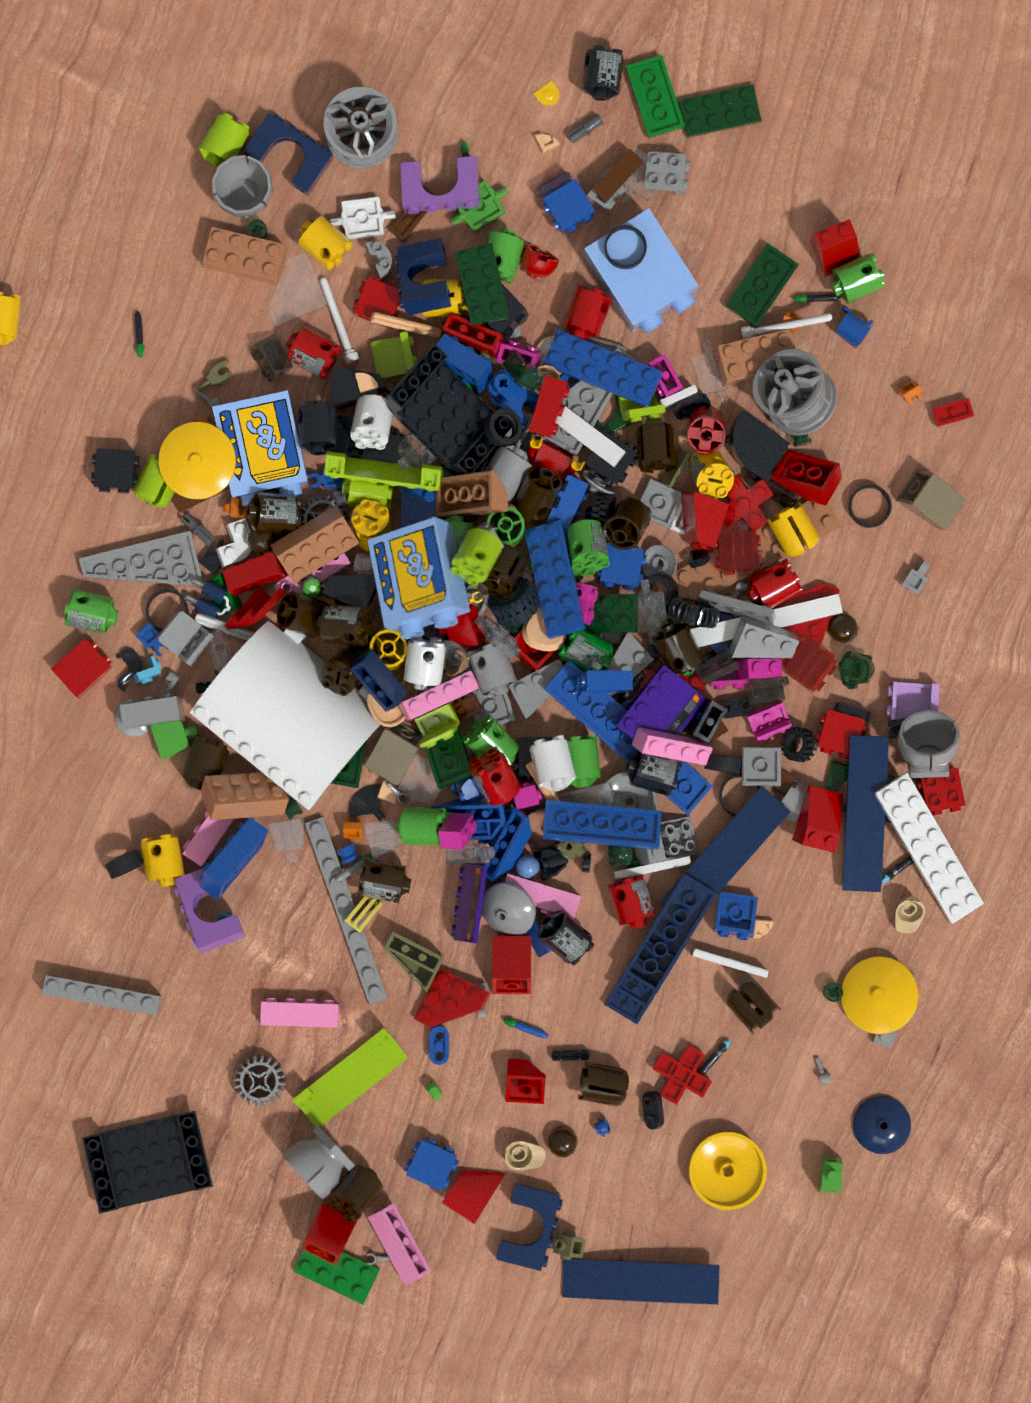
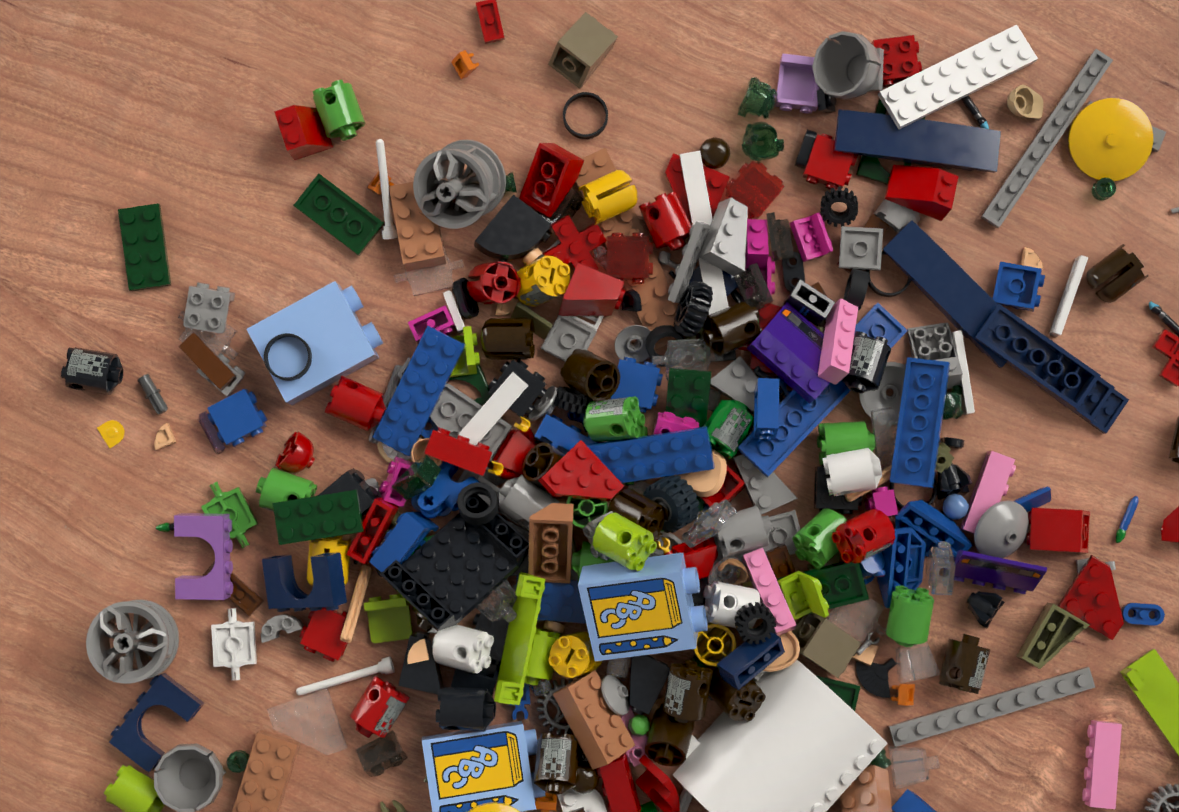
camera: 85 degrees left, 0 degrees up
(324, 242) = (258, 688): yellow cylinder -> none
(337, 562) = (615, 695): none -> light grey dish
(348, 854) = (932, 700): blue wheel -> none
(353, 868) = (947, 696): light grey piece -> none
(372, 901) = (1011, 699): light yellow tile -> none
(395, 505) = (553, 626): none -> light nougat tile
(420, 678) = (759, 632): none -> black tyre
(437, 898) = (984, 606): none -> black brick
(457, 831) = (919, 581): dark pink brick -> none
(533, 518) = (581, 476): none -> red plate
(565, 936) = (1036, 470): black cylinder -> none
(569, 1055) = (1158, 473): black axle -> none
(631, 901) = (1000, 396): red cylinder -> none
(655, 96) = (123, 316): green plate -> none
(734, 465) = (532, 256): none -> light nougat piece
(816, 298) = (355, 172): black piece -> none
(853, 328) = (392, 119): blue hat -> none
(877, 937) = (1046, 138): none -> light grey plate
(894, 663) = (758, 99): none -> clear green helmet
(915, 579) = (667, 72): light grey plate -> none

